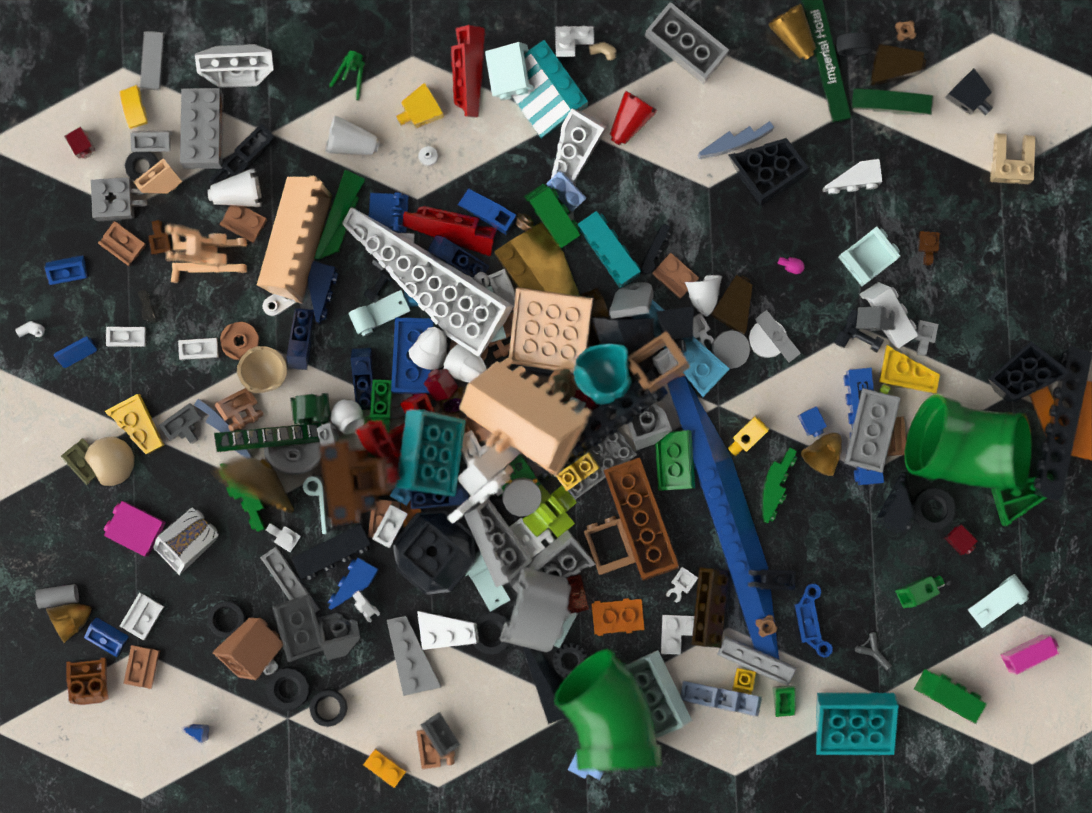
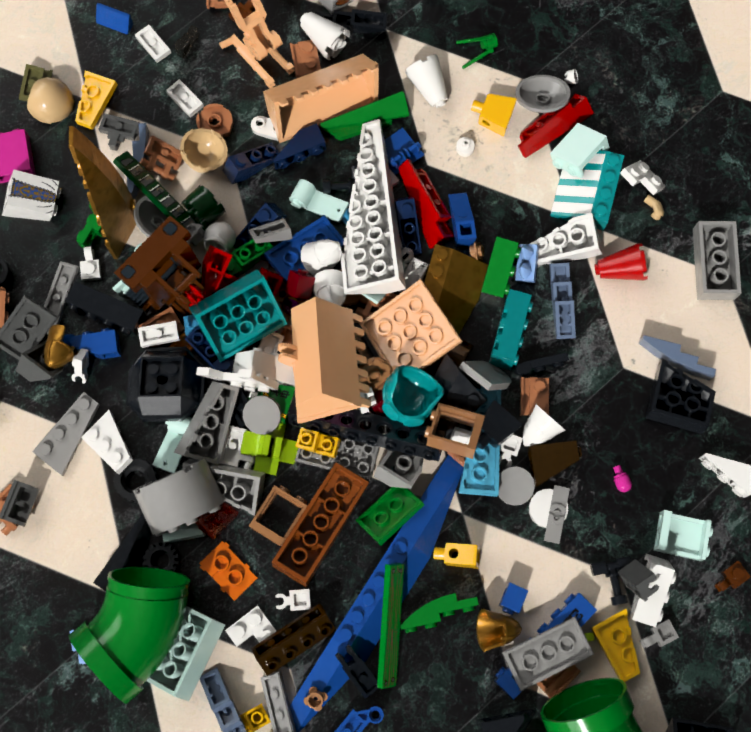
camera: 45 degrees right, 10 degrees down
(342, 616) = (56, 351): none -> pearl gold helmet
(376, 365) = (271, 232): none -> light grey slope
(431, 52) = (543, 93): none -> light grey dish
(440, 18) = (572, 76): none -> white hinge
(618, 189) = (562, 301): none -> sand blue slope
(758, 528) = (390, 625): none -> green tile

